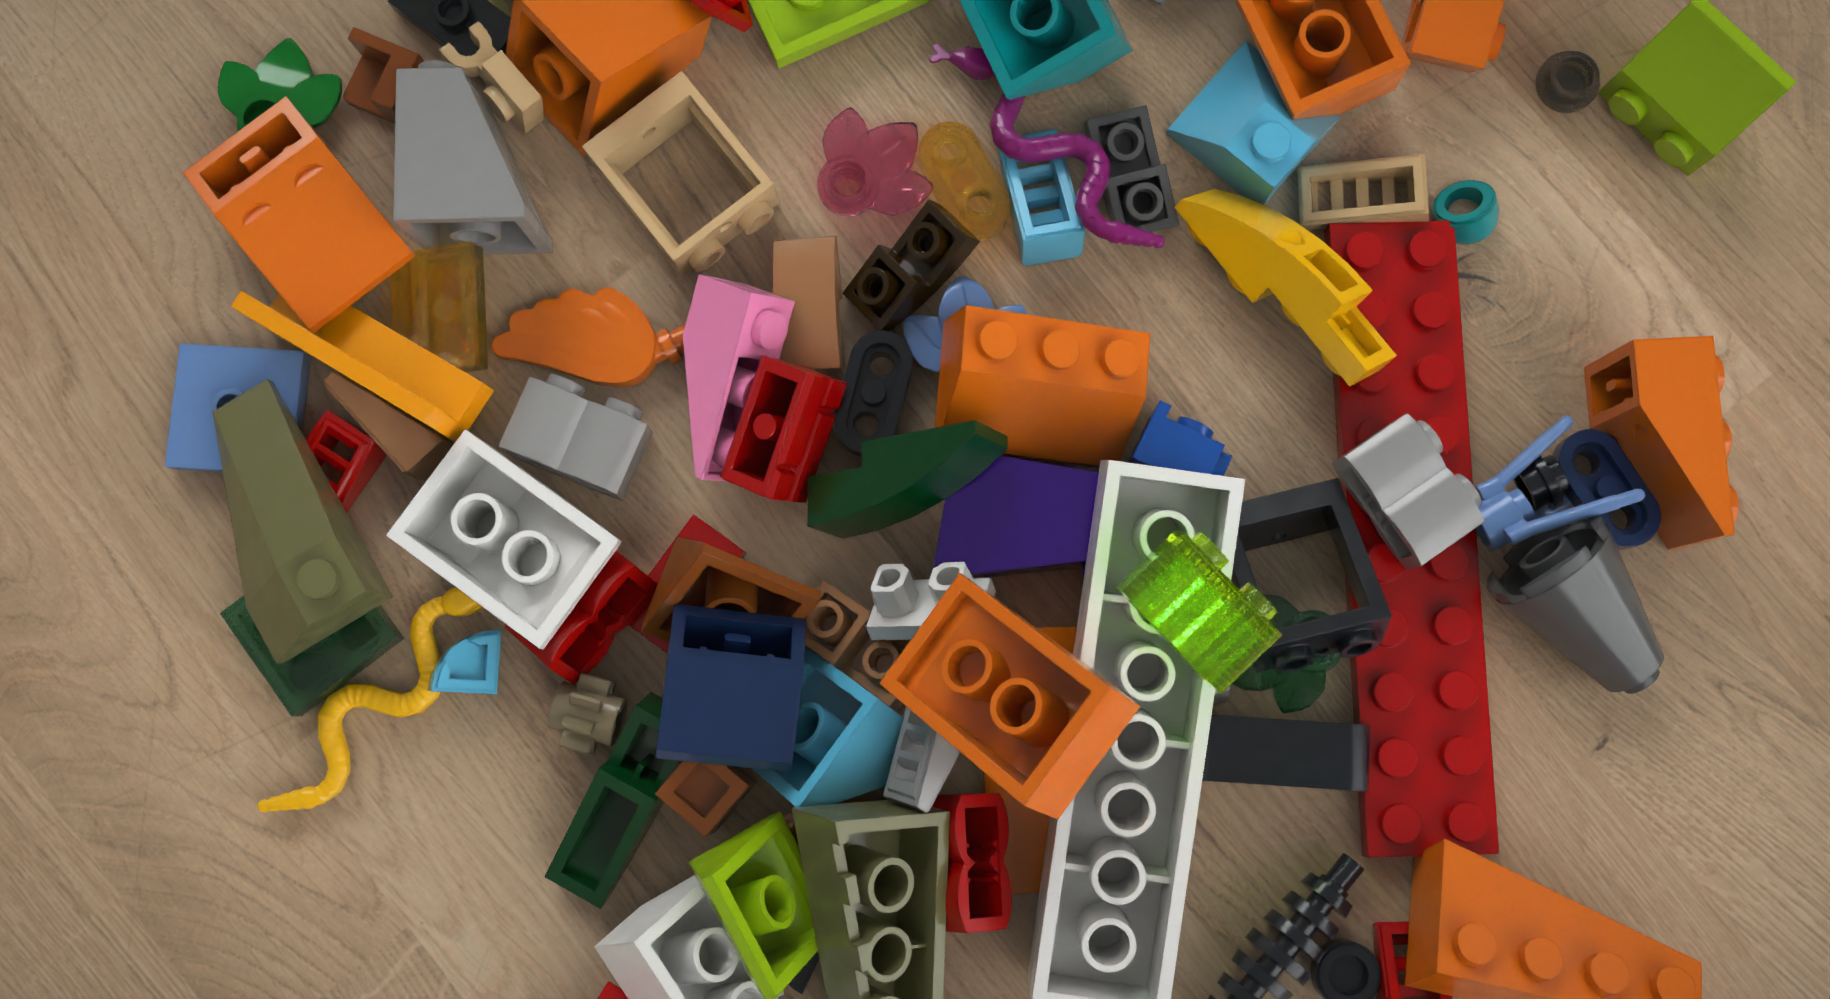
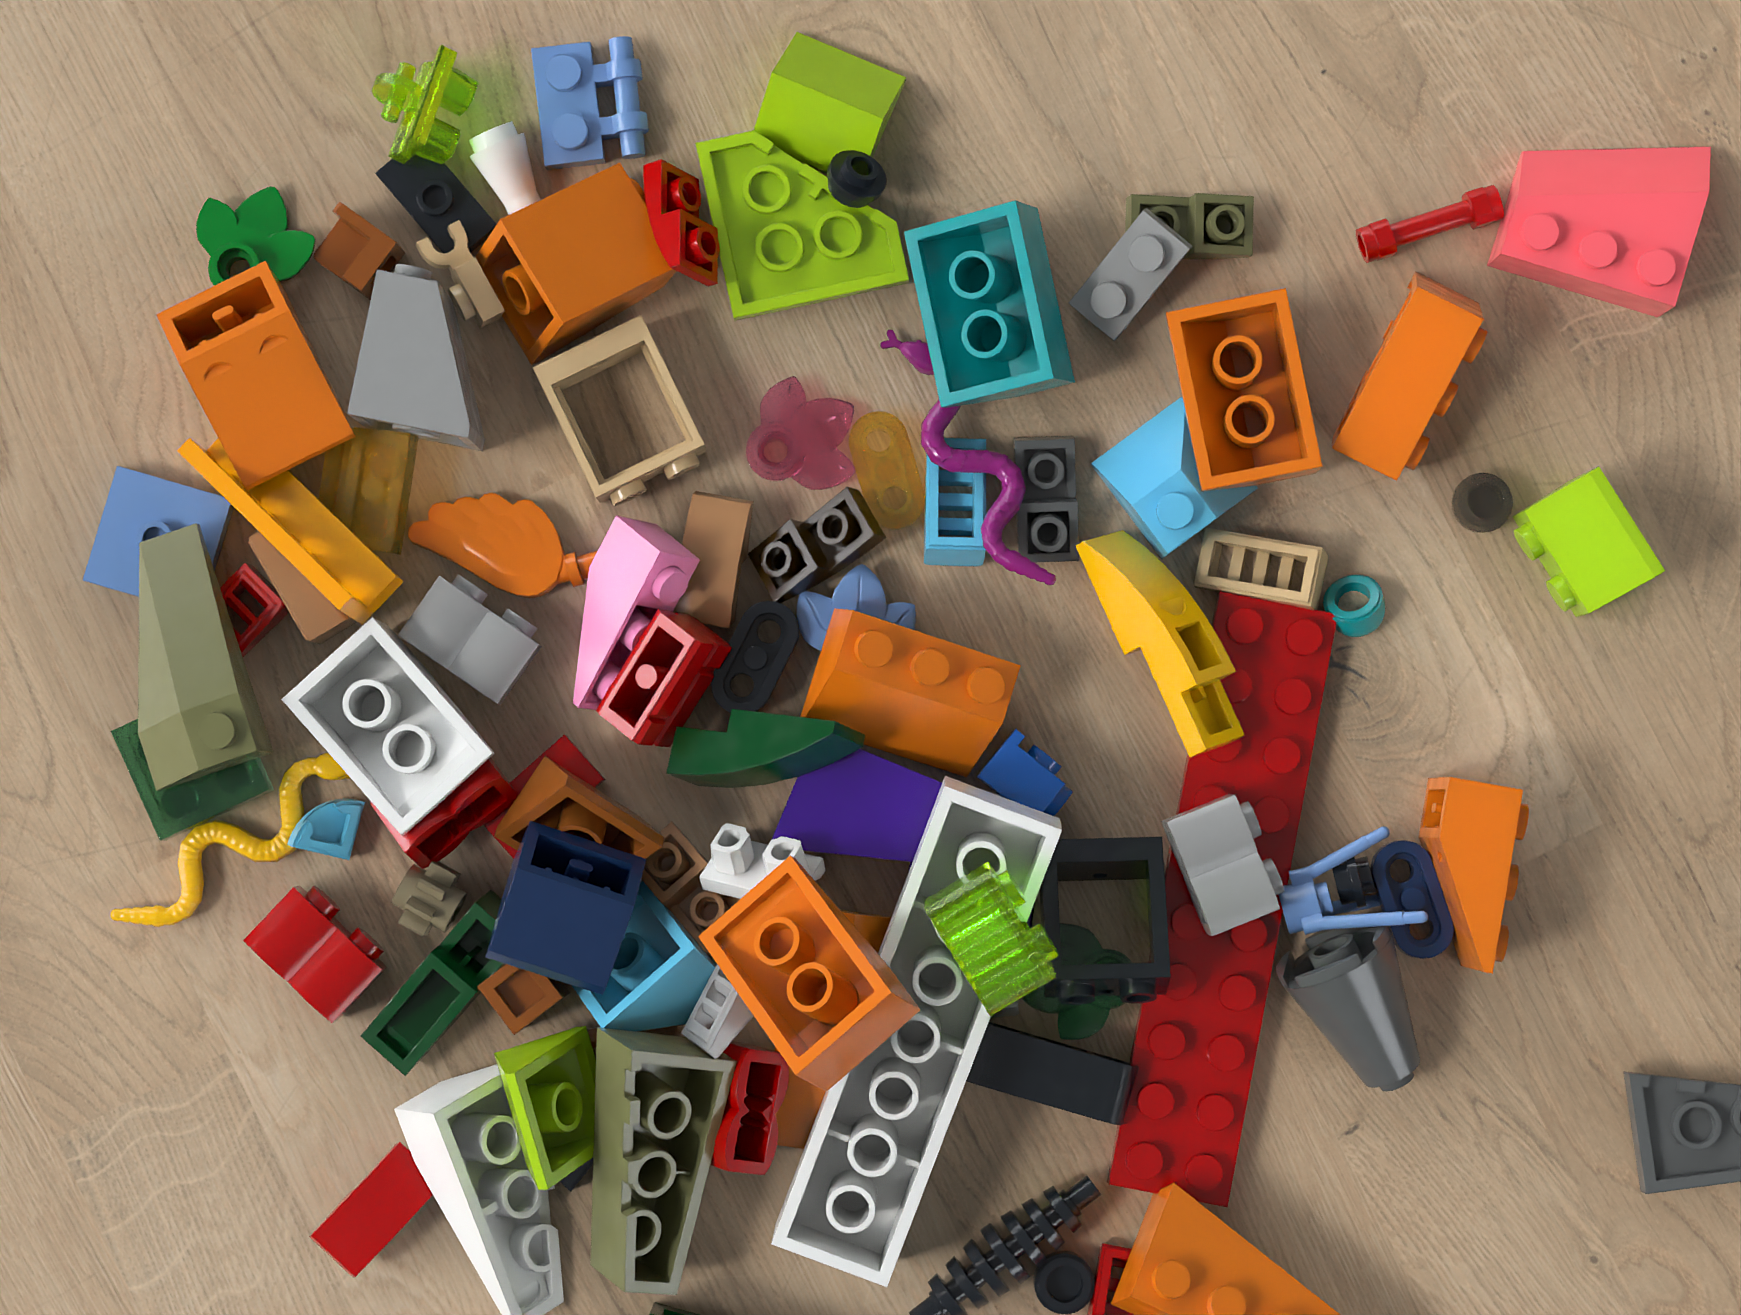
camera: 10 degrees right, 5 degrees up
(480, 797) = (316, 952): none -> red brick

